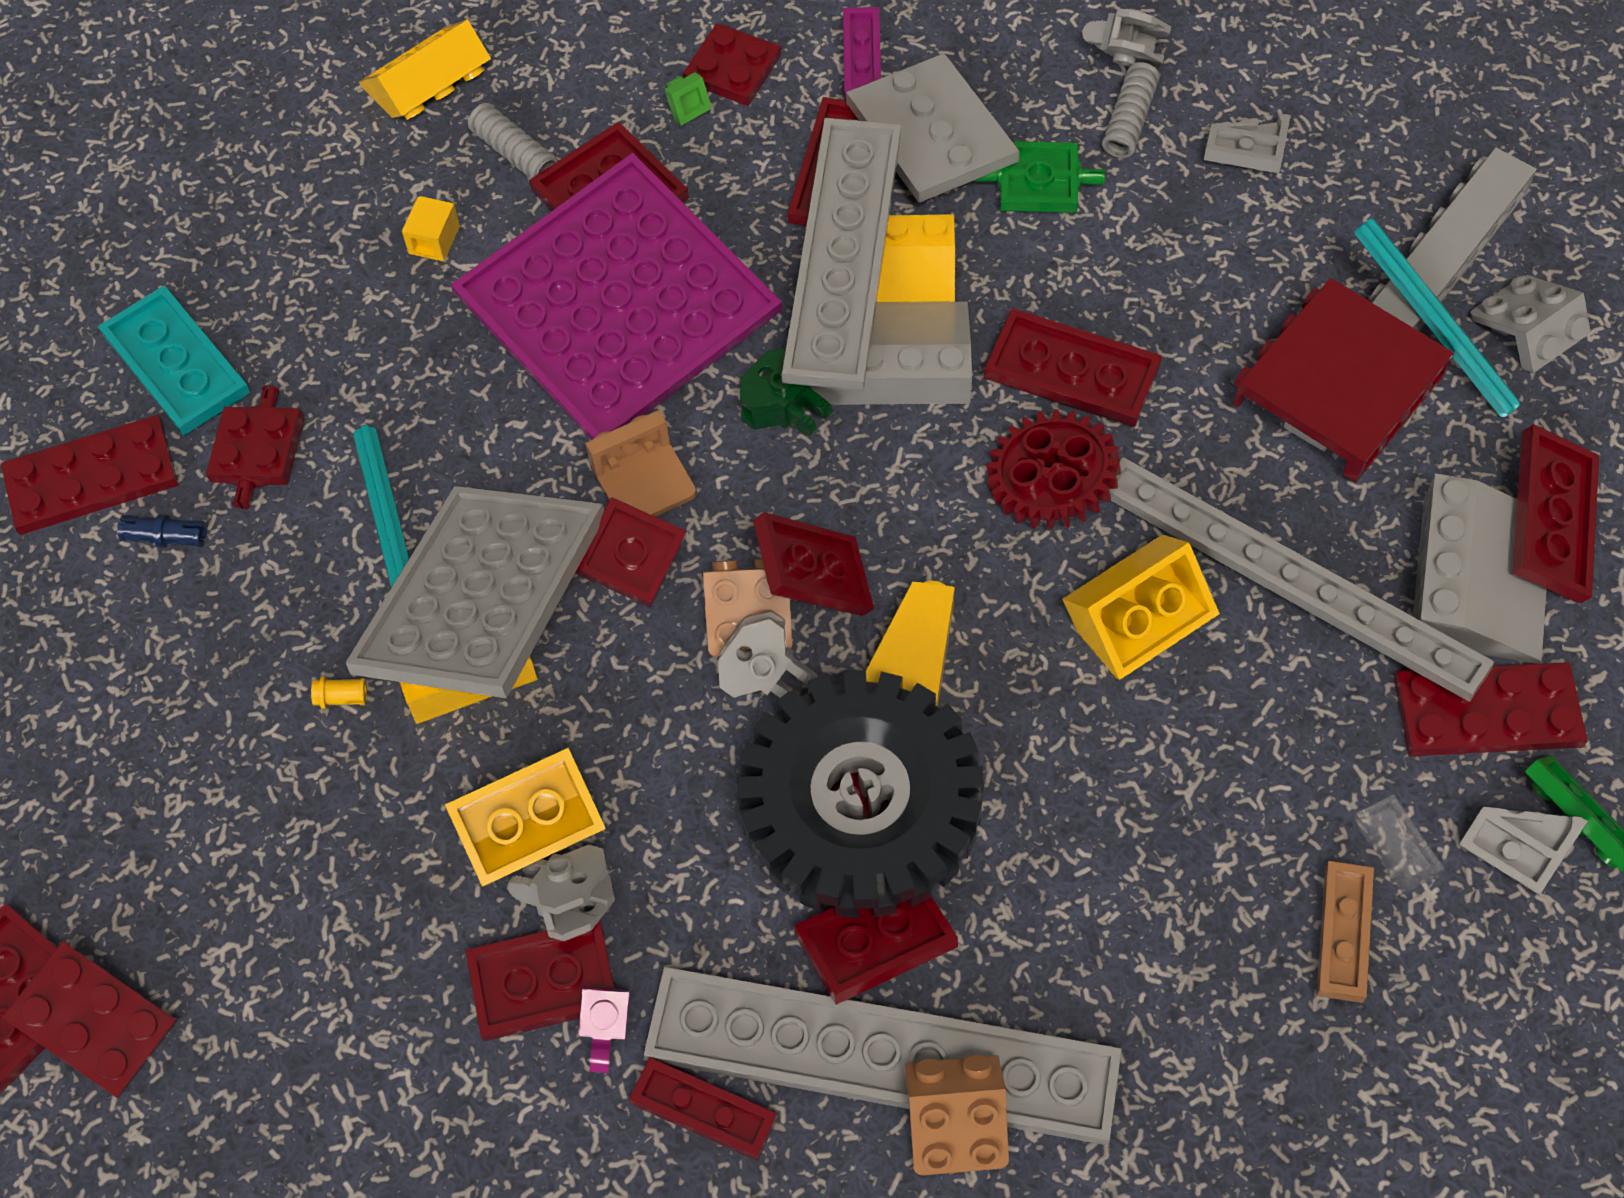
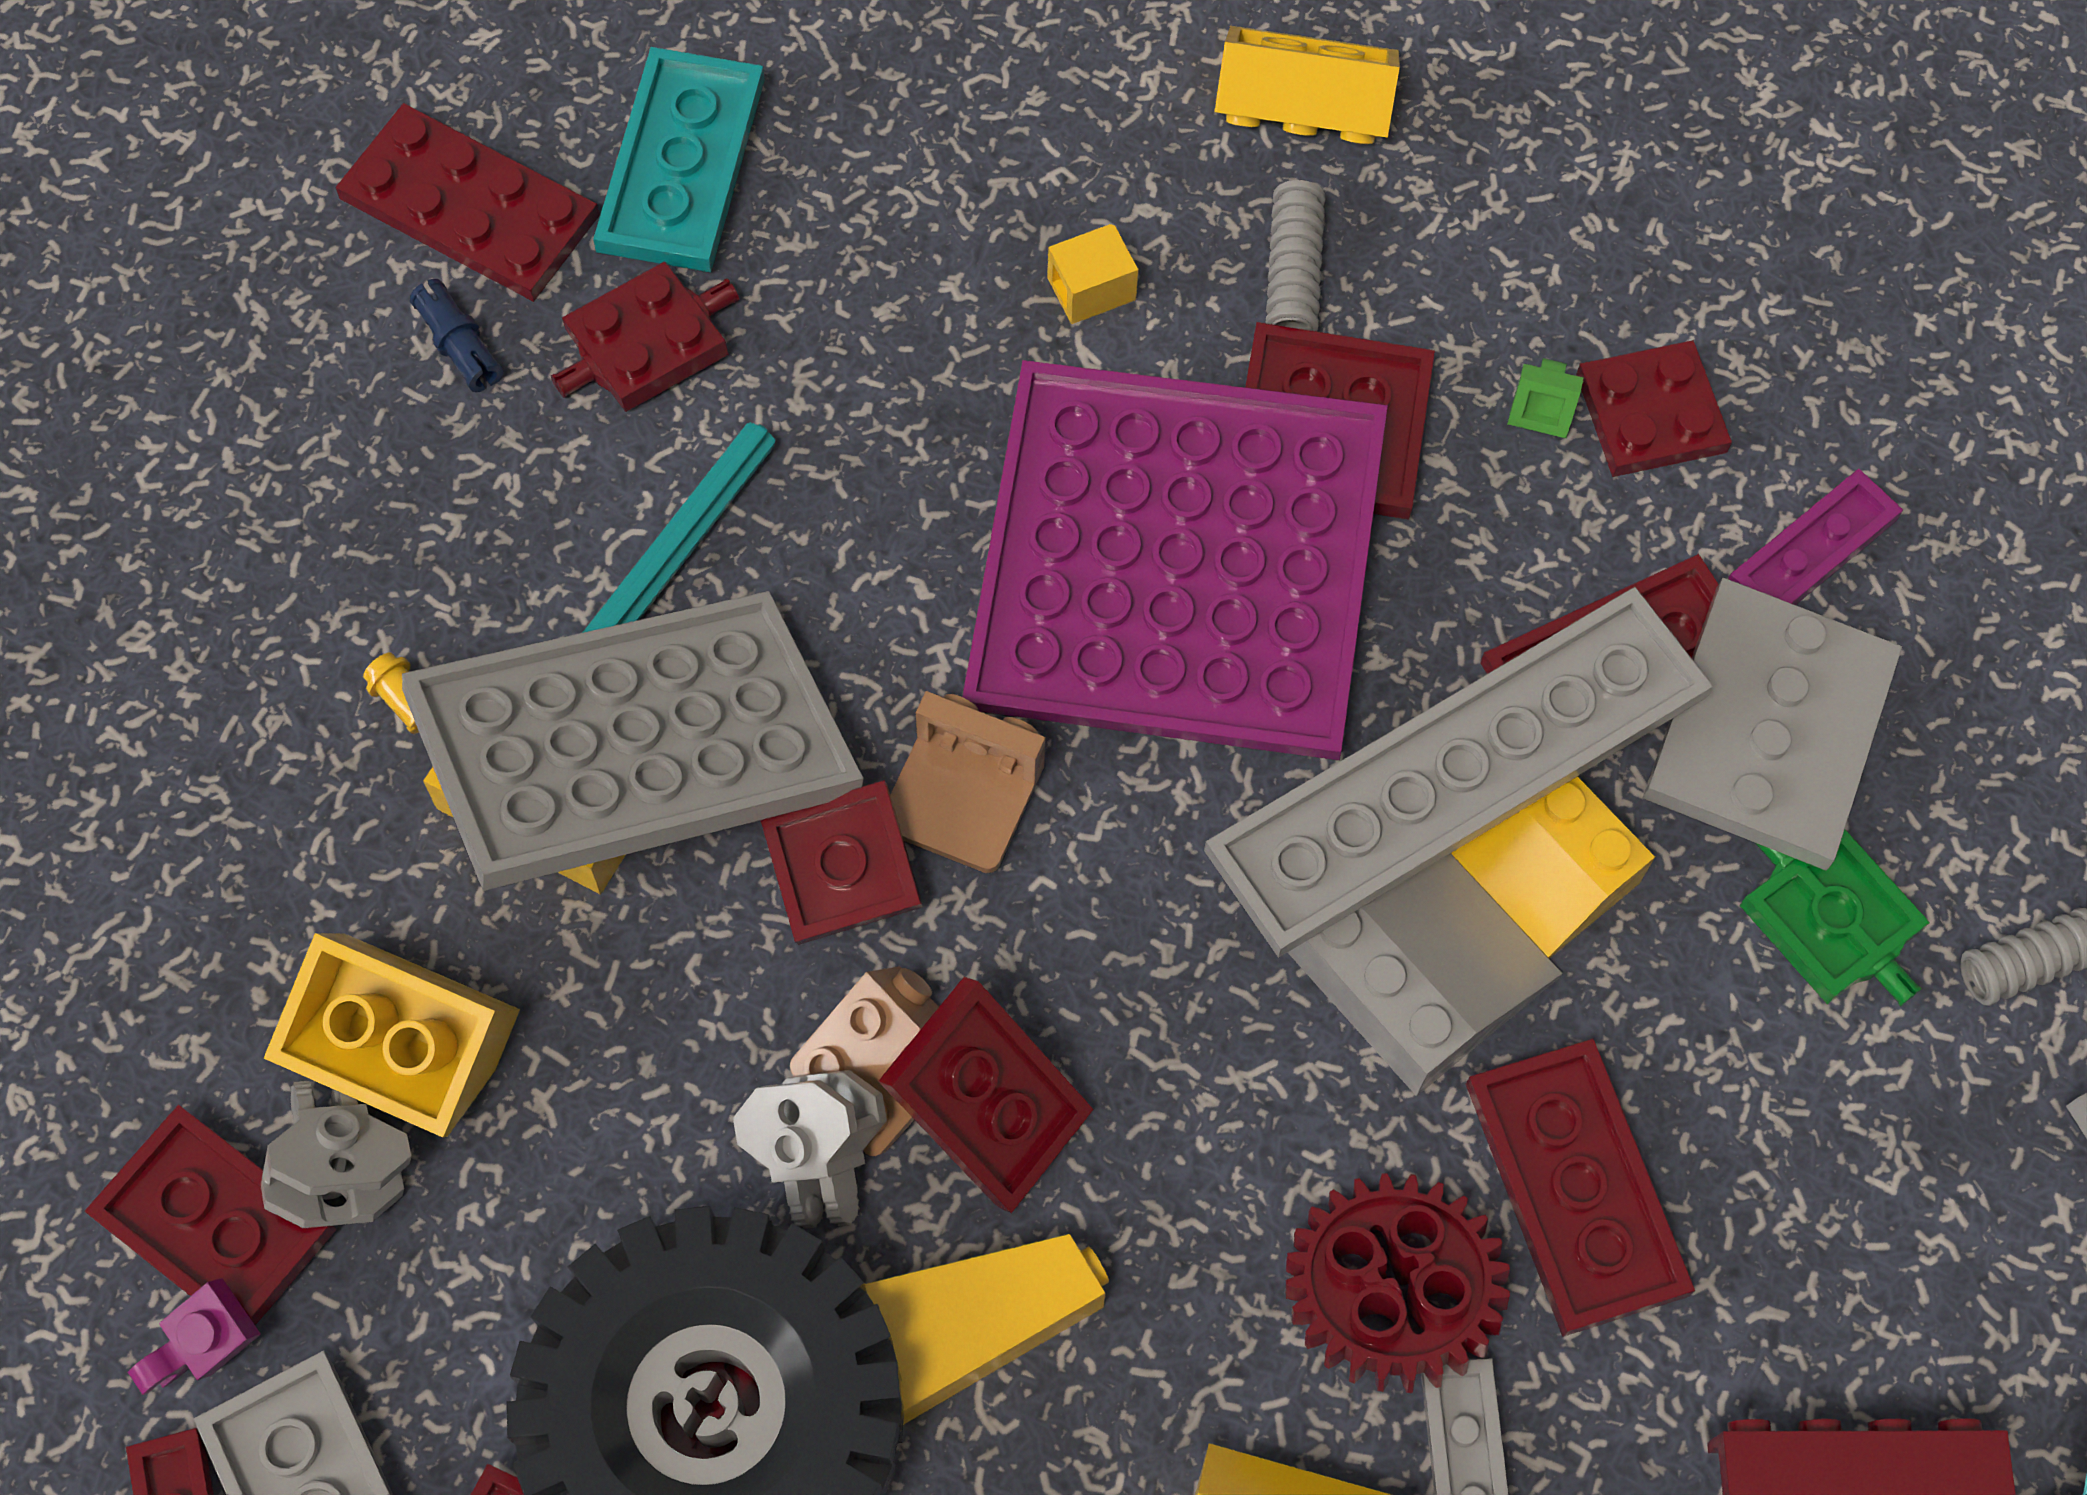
camera: 45 degrees right, 5 degrees up
(774, 403) = (1177, 854): dark green hinge -> none

